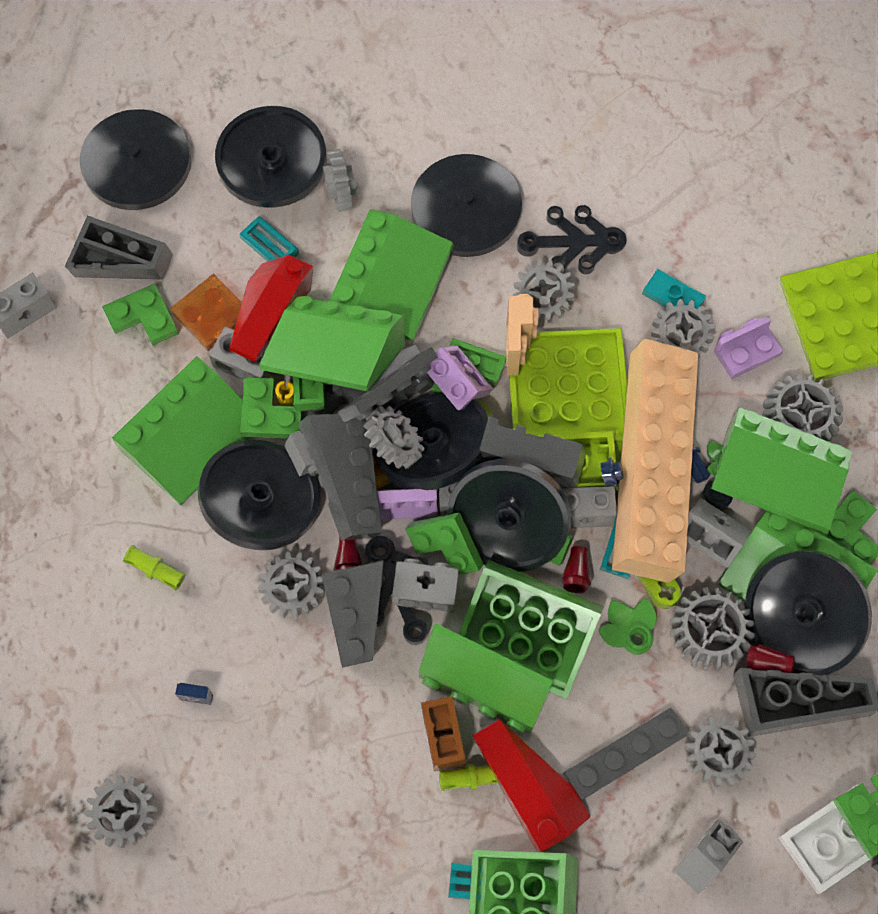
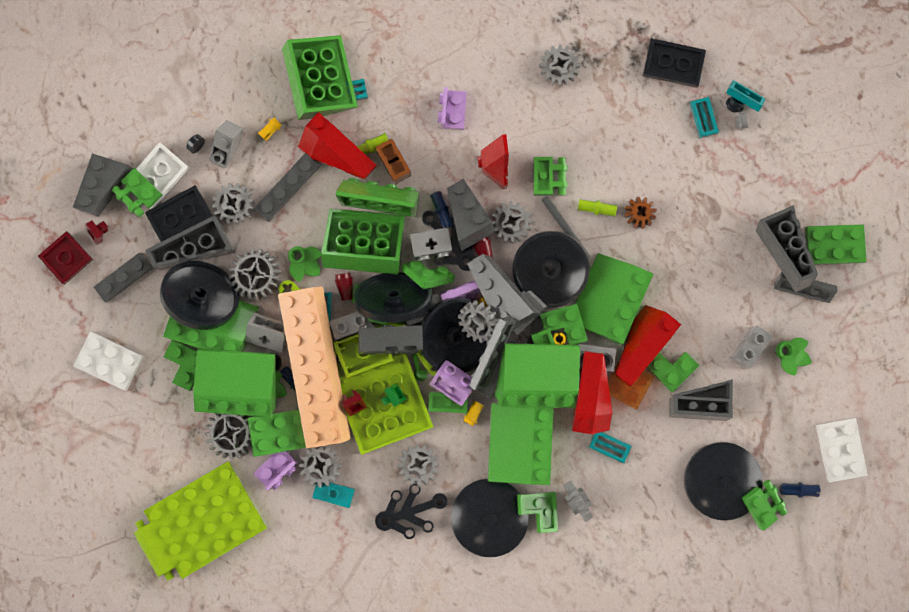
camera: 160 degrees right, 15 degrees up
(39, 118) = (800, 489): none -> dark blue axle
(100, 107) = (759, 507): none -> bright green plate
(103, 542) = (638, 205): none -> dark orange gear
(157, 355) = (647, 337): none -> red wedge
(194, 693) = (544, 141): dark blue tile -> none
(214, 561) = (560, 220): none -> dark grey bar
(216, 640) = (543, 176): none -> bright green plate
(270, 156) = (631, 507): black dish -> none
(280, 676) = (495, 161): none -> red wedge
(319, 796) = (453, 109): none -> lavender bracket
(390, 194) = (544, 507): none -> bright green plate
(391, 637) = (442, 209): none -> dark blue axle
(444, 336) = (473, 413): none -> yellow pin
(501, 411) = (419, 374): none -> bright green hand
(520, 328) = (424, 428): light nougat plate -> none
(550, 384) = (394, 395): none -> green tile
(610, 391) = (353, 404): none -> dark red tile
(611, 472) = (339, 346): dark blue plate -> none
(629, 859) = (270, 129): none -> yellow pin
(735, 384) = (276, 433): none -> bright green plate
(760, 873) = (195, 143): none -> black tile
(765, 658) = (216, 263): dark red cone -> none
(811, 760) = (178, 213): none -> black plate

